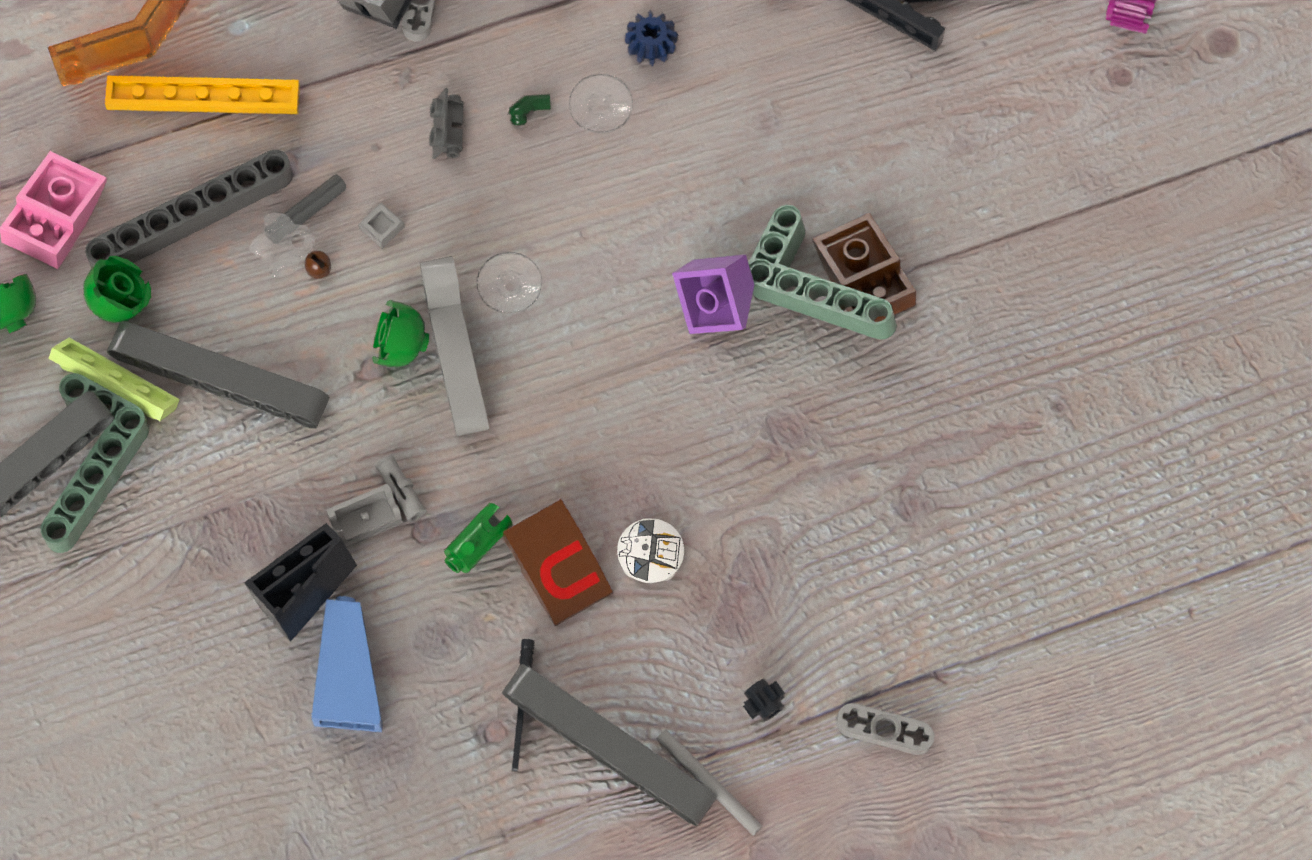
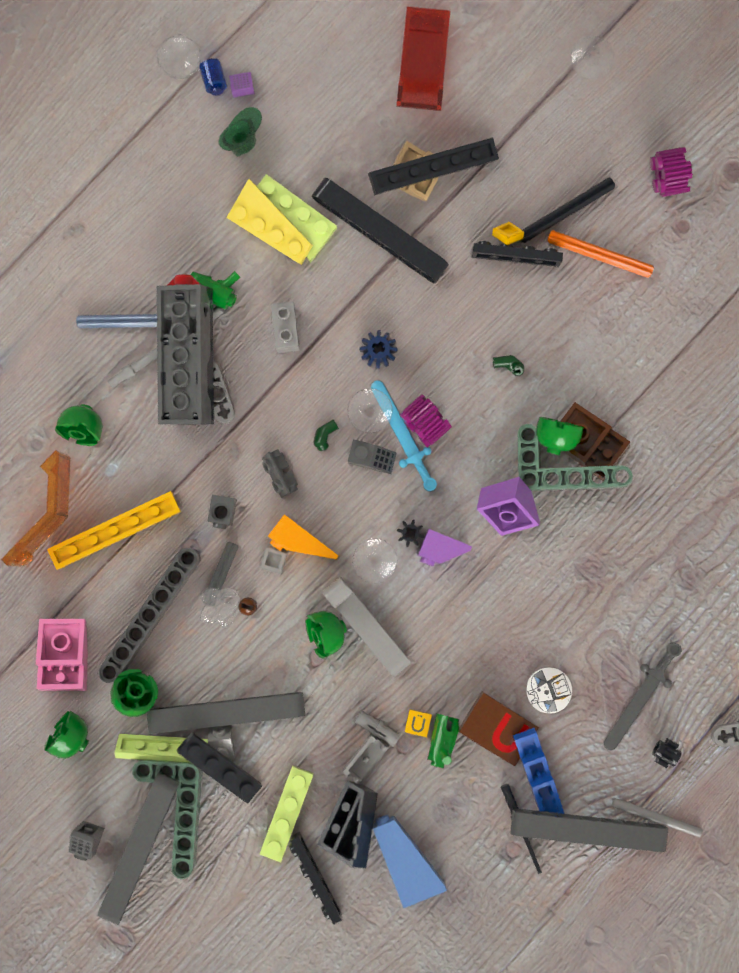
camera: 25 degrees left, 15 degrees up
(172, 431) = (219, 767): none -> black plate
(190, 411) = (221, 739): none -> light grey bracket
(217, 646) = (319, 888): none -> black plate
(225, 538) = (286, 813): none -> yellowish green plate
(349, 121) = (219, 501): none -> dark grey brick
(425, 213) = (296, 539): none -> light orange slope
(457, 509) = (418, 723): none -> yellow tile
(569, 280) = (411, 527): none -> black gear
(572, 157) = (371, 457): none -> dark grey slope
(581, 638) = (538, 772): none -> blue slope
(601, 302) = (440, 548): none -> medium lavender slope
(629, 169) = (407, 443): none -> medium azure sword
(663, 142) = (425, 420): none -> magenta brick
(770, 619) = (642, 696): none -> dark grey sword
(812, 133) = (513, 364): none -> dark green arm
(823, 230) = (557, 435): none -> green cylinder
(996, 58) = (601, 254): none -> orange axle

